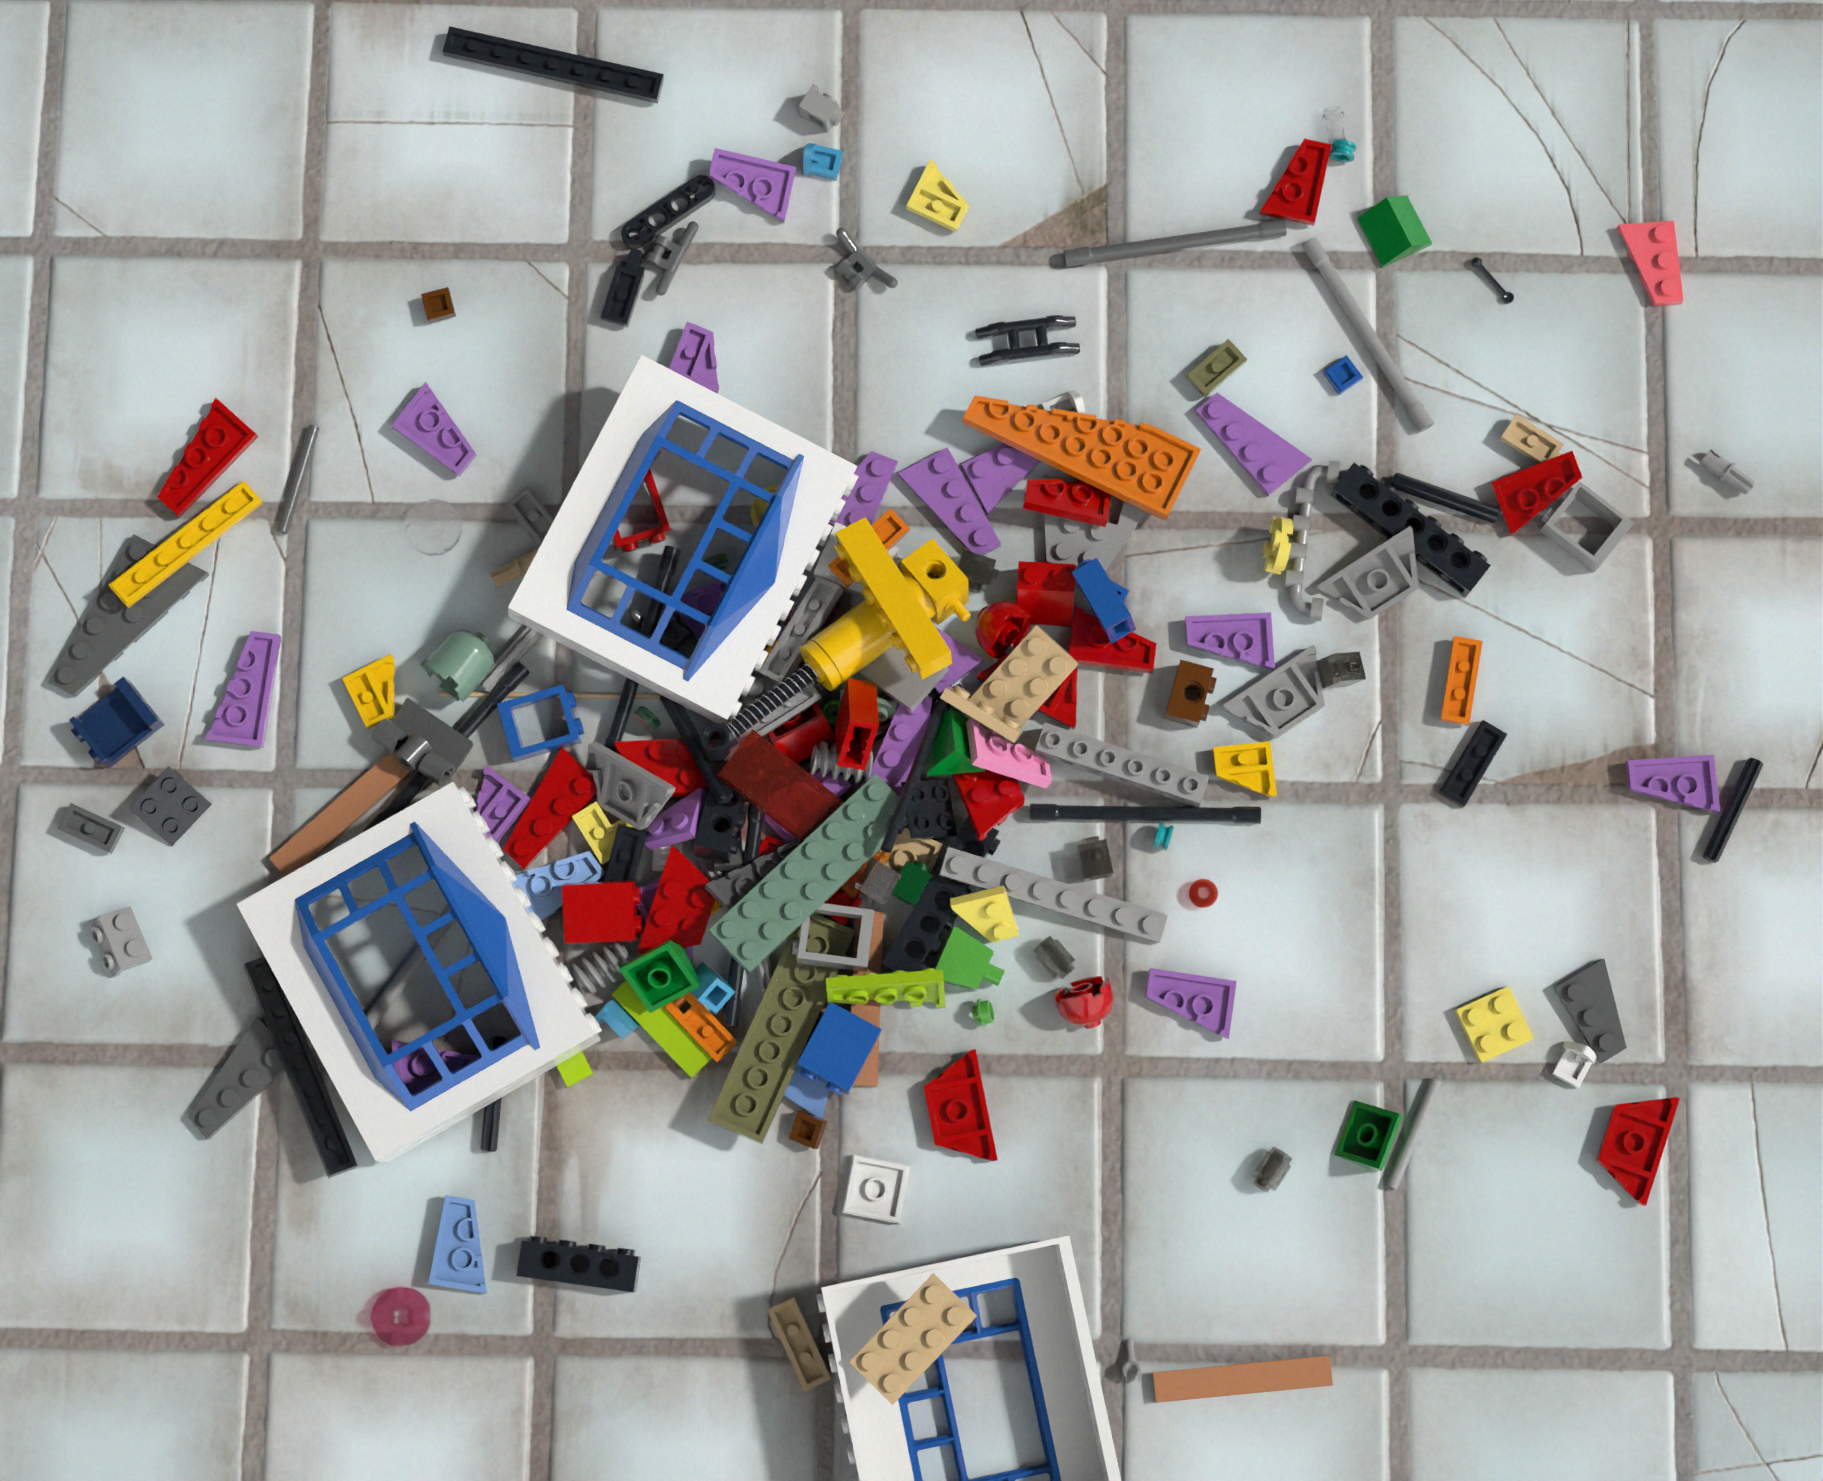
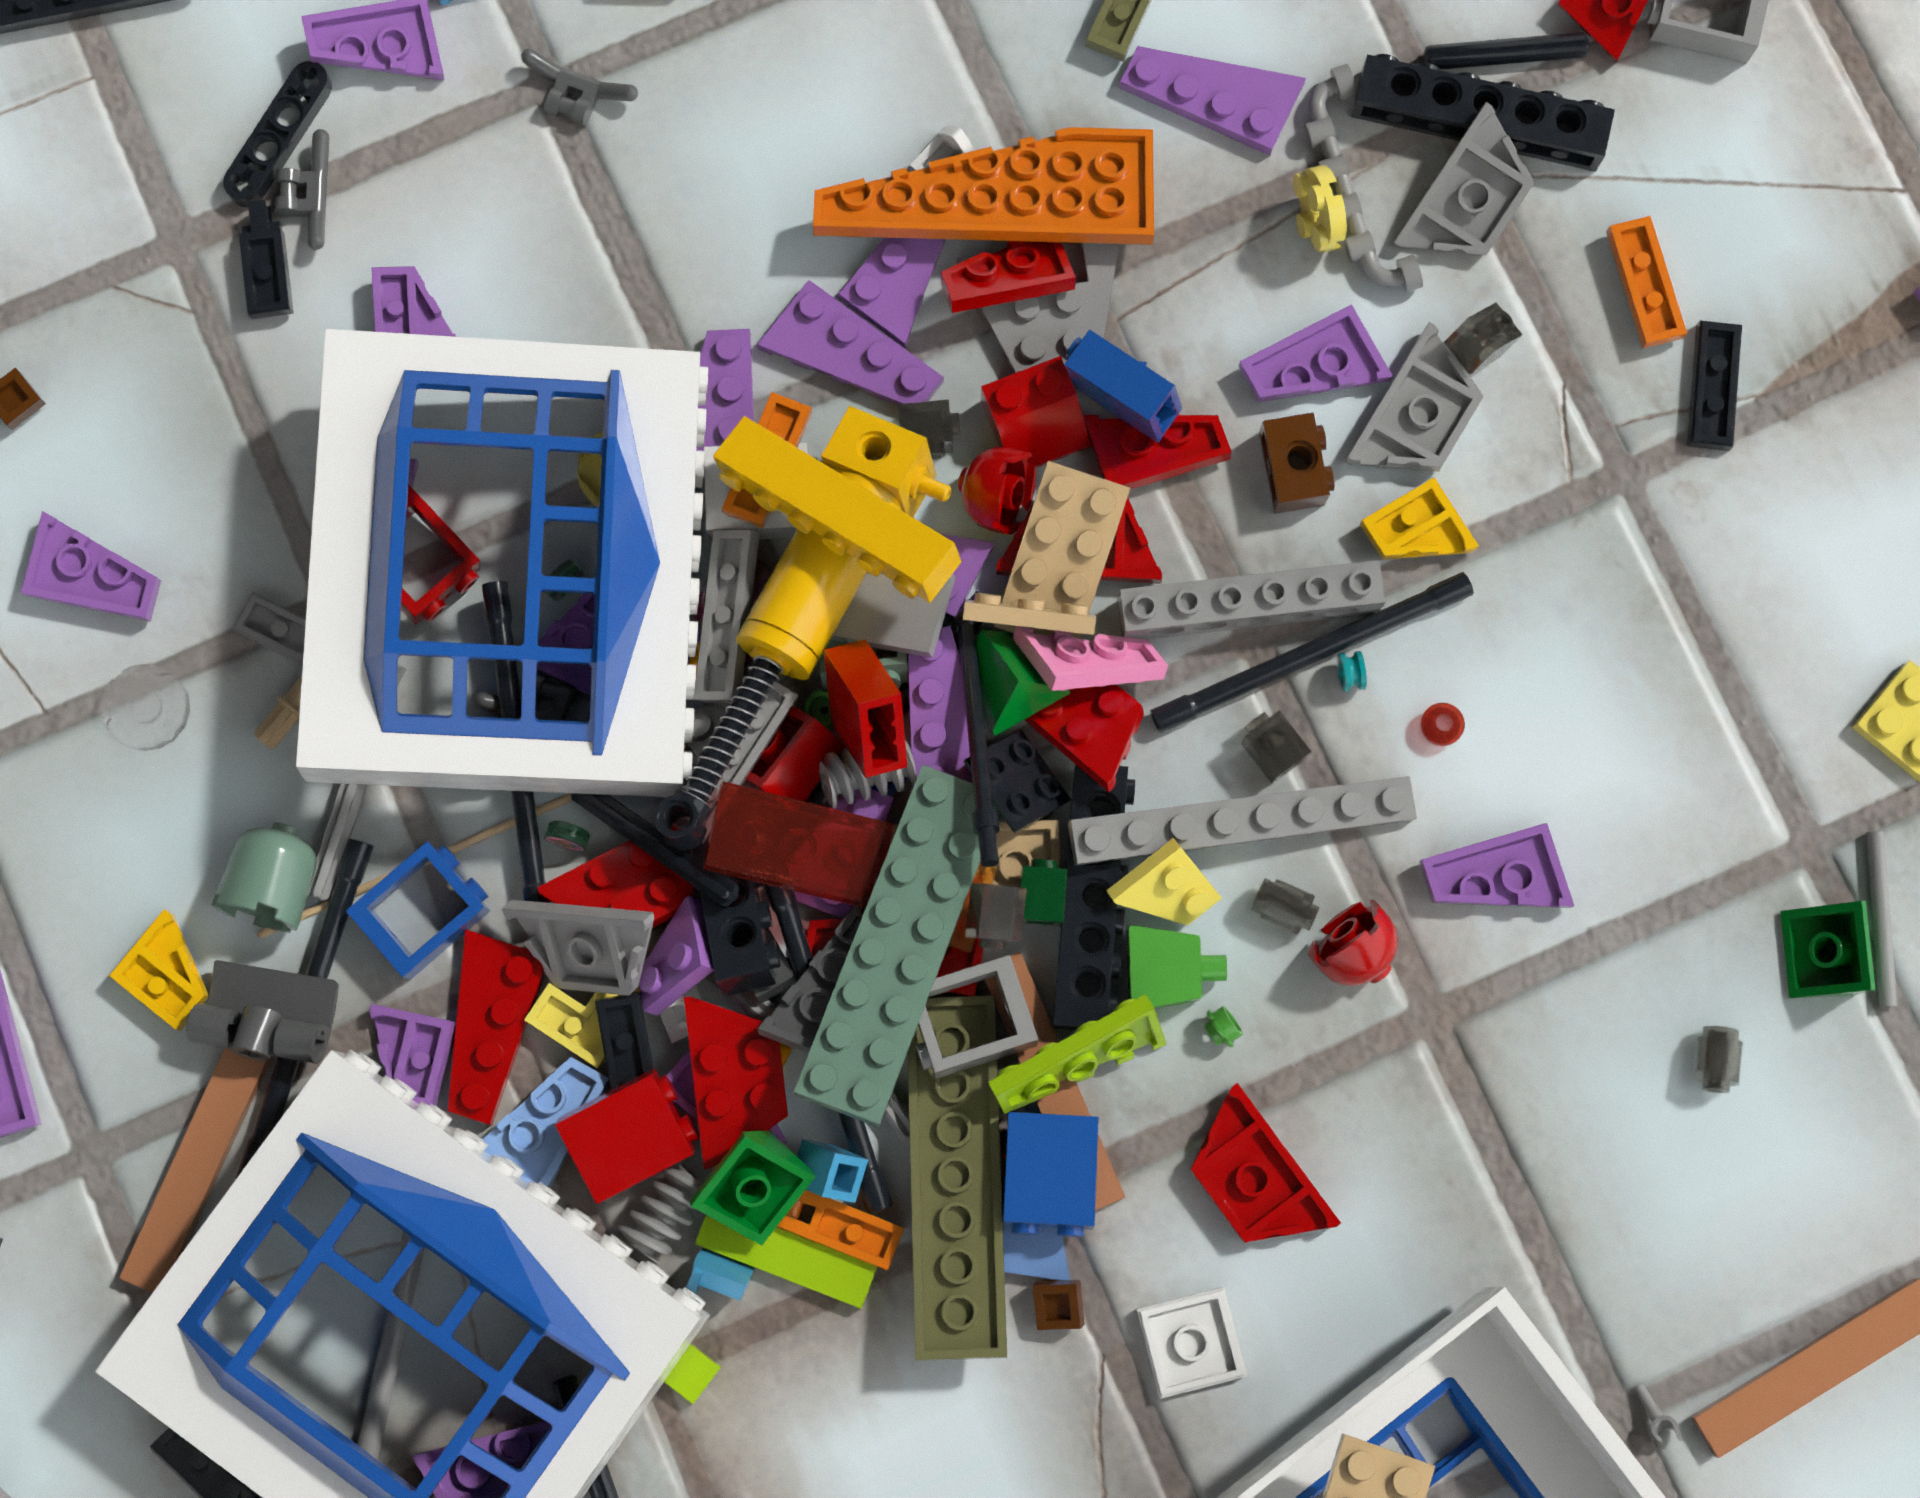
camera: 25 degrees left, 0 degrees up
(1015, 351) = (844, 111): black piece -> none

